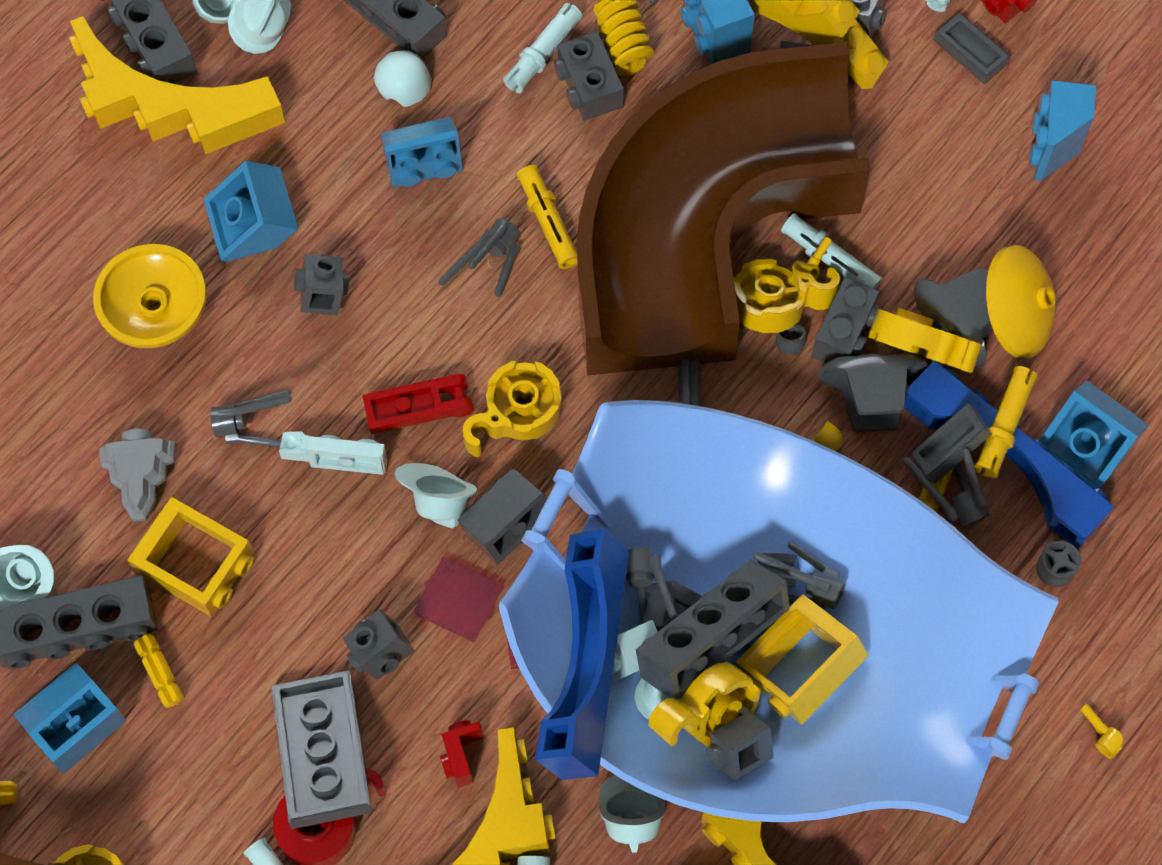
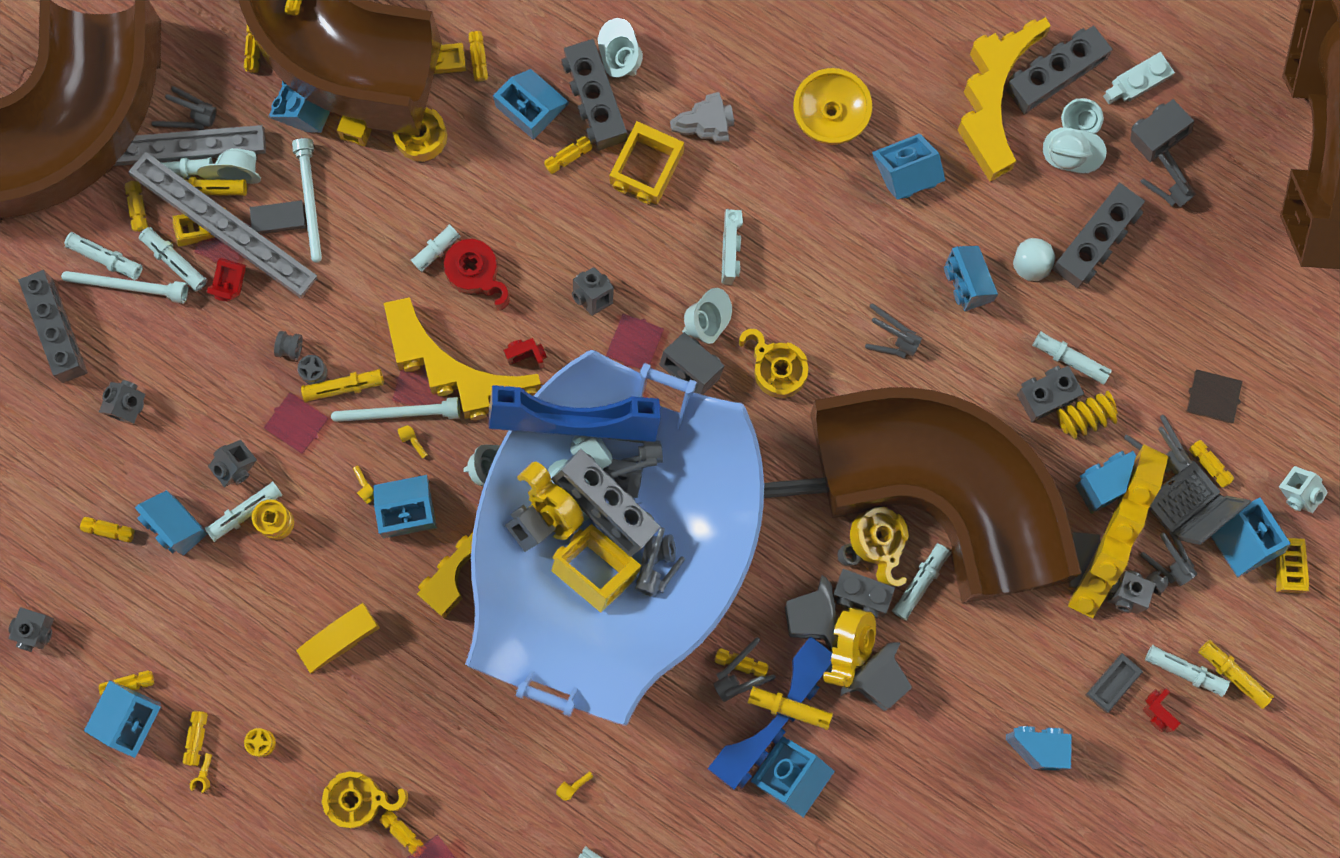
camera: 85 degrees right, 10 degrees up
(231, 418) = (750, 175): dark grey plant -> none
(321, 276) = (855, 220): dark grey brick -> none
(321, 750) = (519, 262): tile -> none
(417, 403) = (773, 297): red plate -> none
(532, 182) = (939, 369): yellow pin -> none
(812, 265) = (906, 564): yellow hand -> none
(829, 436) = (773, 585): yellow hinge -> none
(945, 446) = (777, 674): dark grey tile -> none
(1020, 301) = (888, 717): yellow dish -> none
(1063, 556) = (695, 749): dark grey wheel -> none

